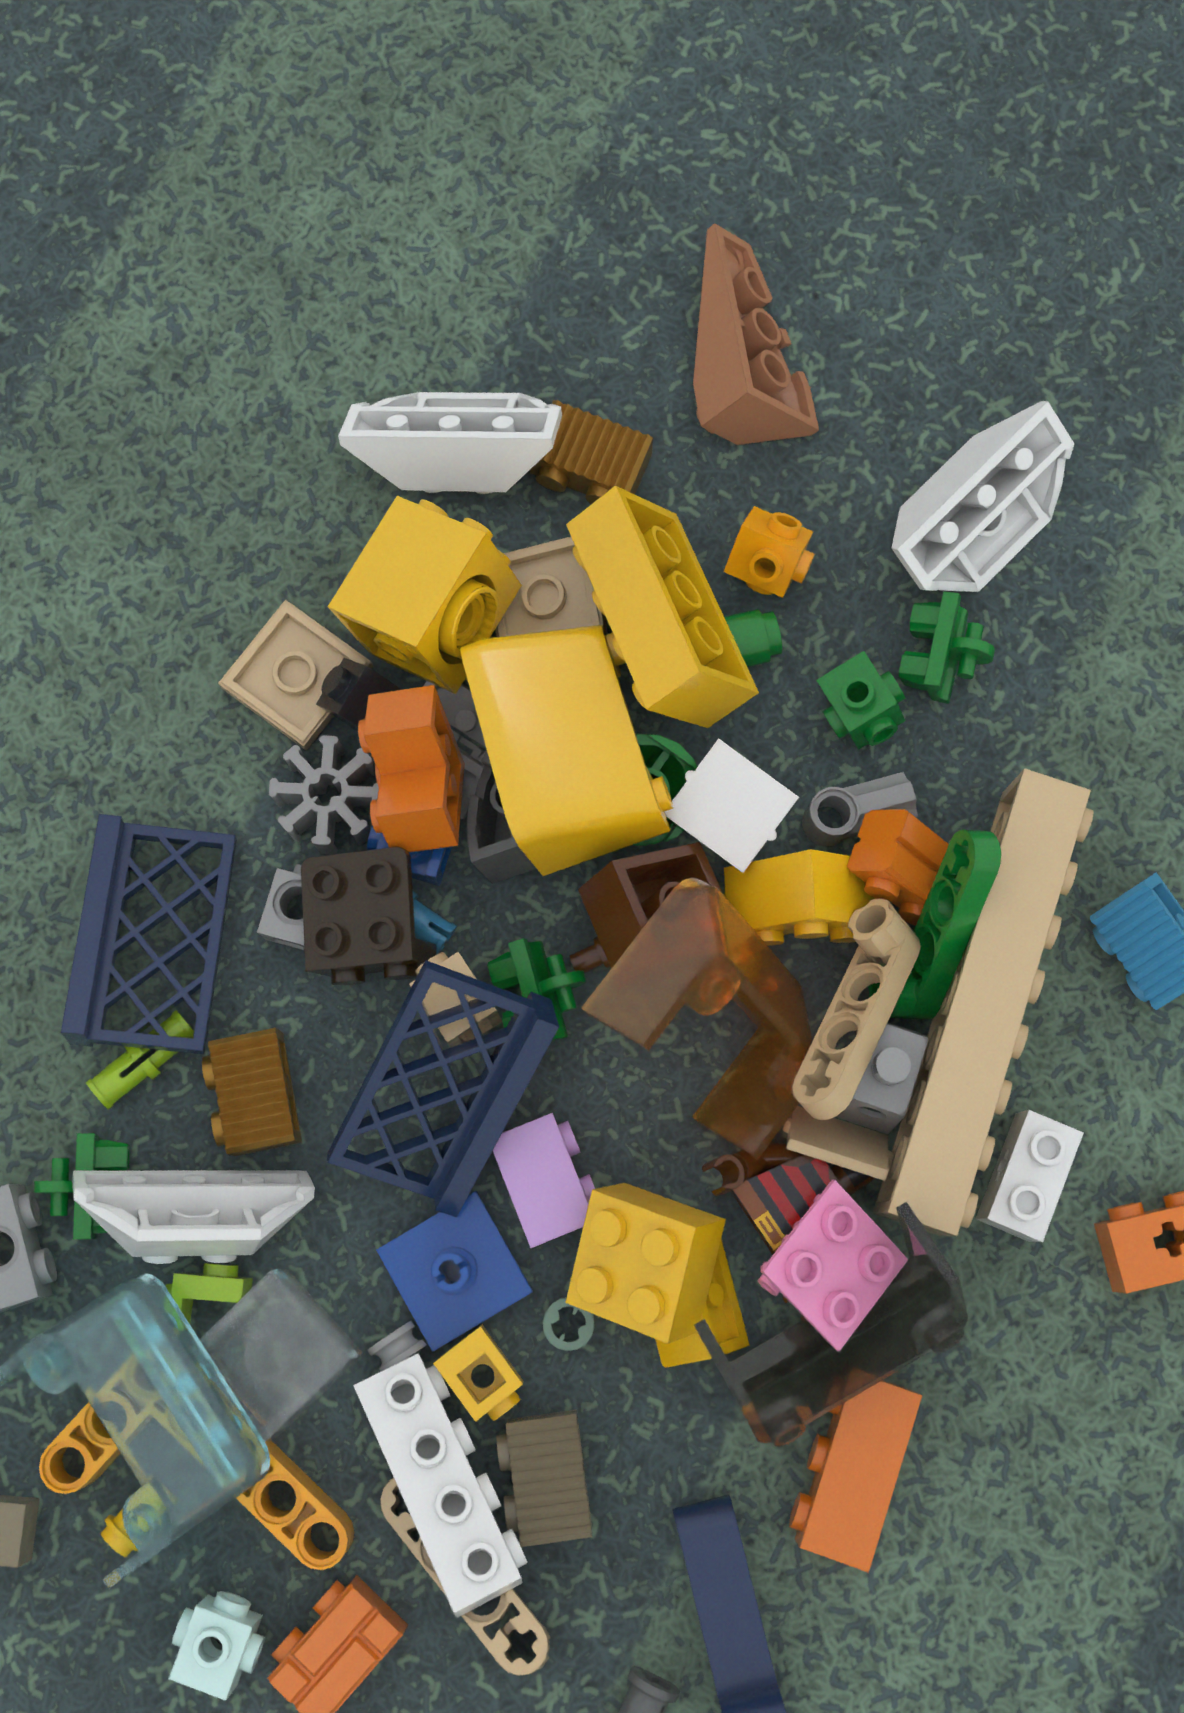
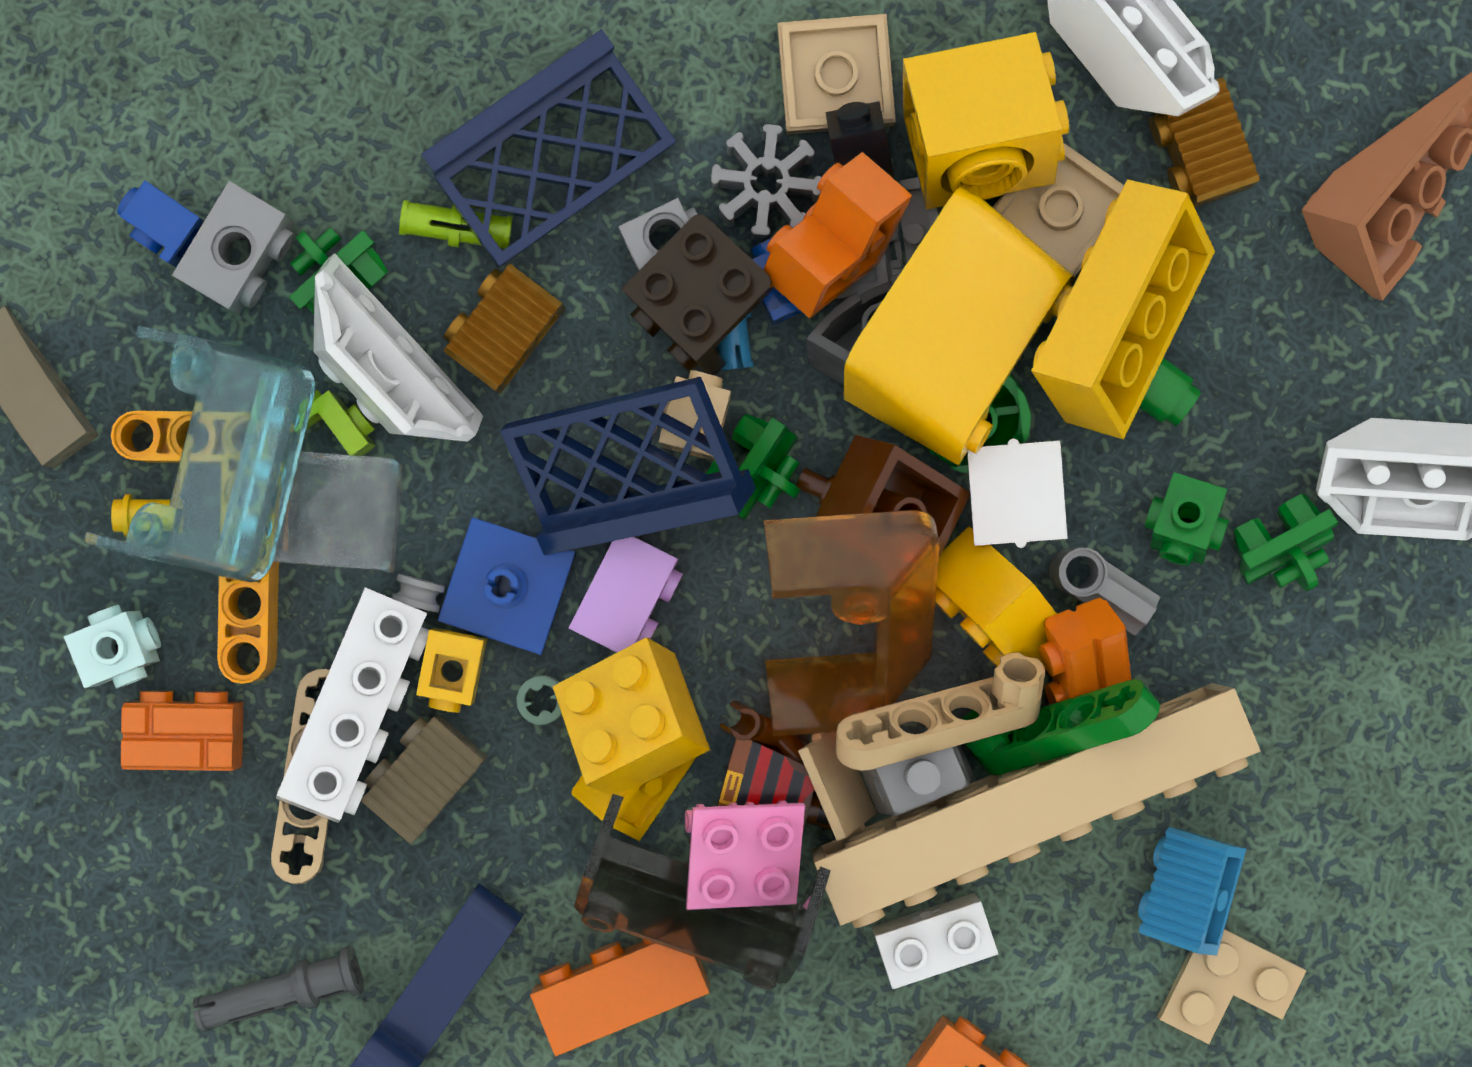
camera: 45 degrees right, 10 degrees up
(770, 552) = (1247, 350): light orange brick -> none

